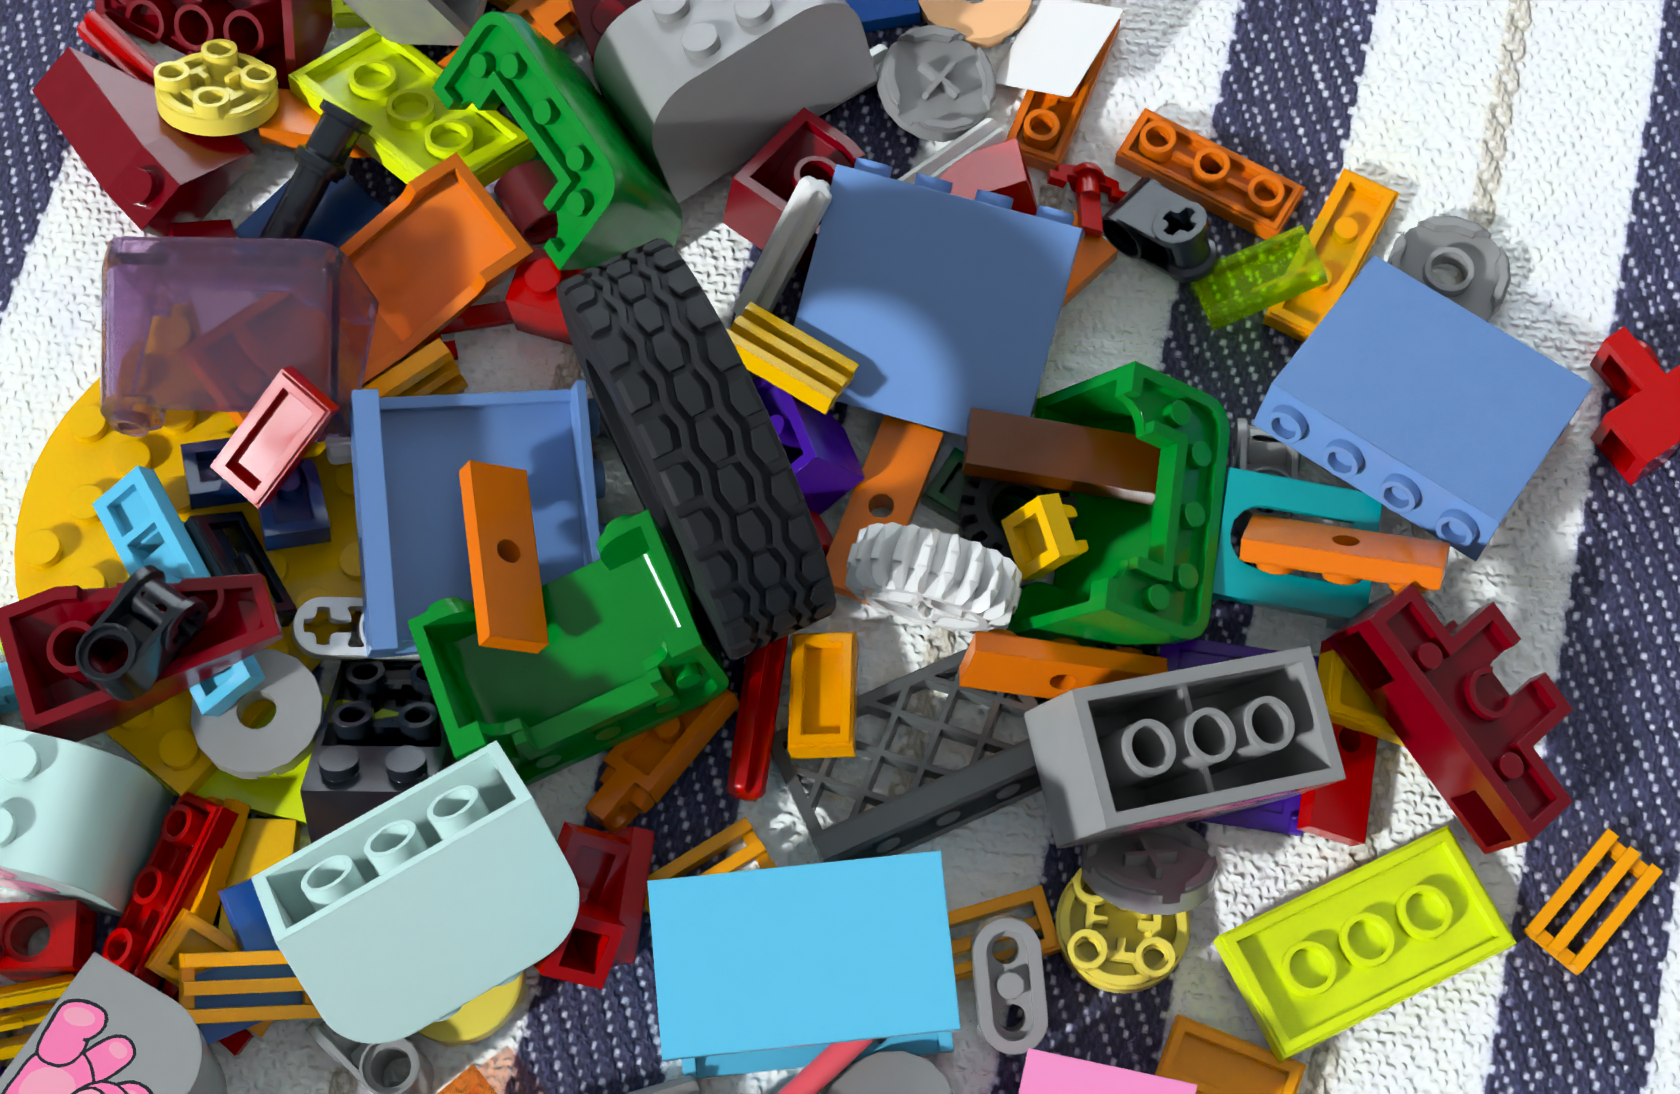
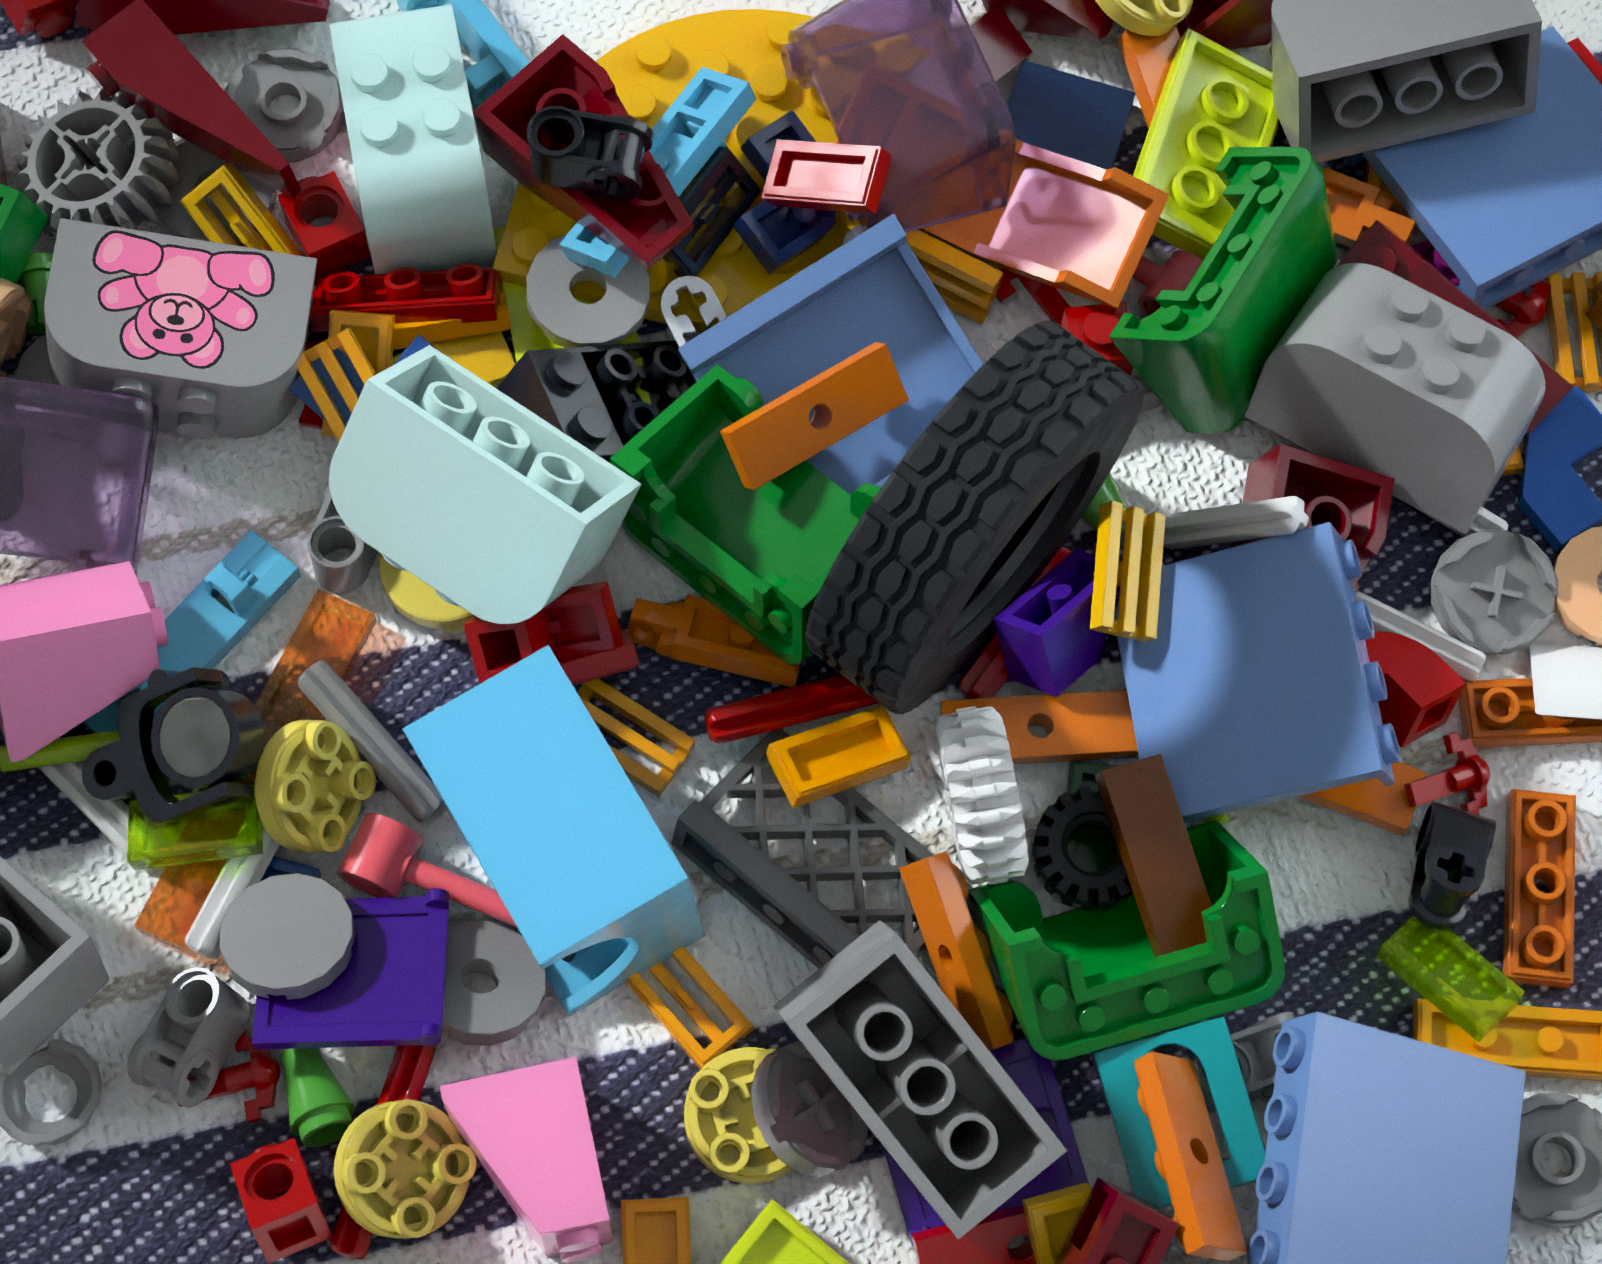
camera: 55 degrees right, 0 degrees up
(319, 163) = (1108, 93): black pin -> none
(1009, 982) = (647, 1031): light grey plate -> none
(1042, 536) = (1066, 872): yellow tile -> none

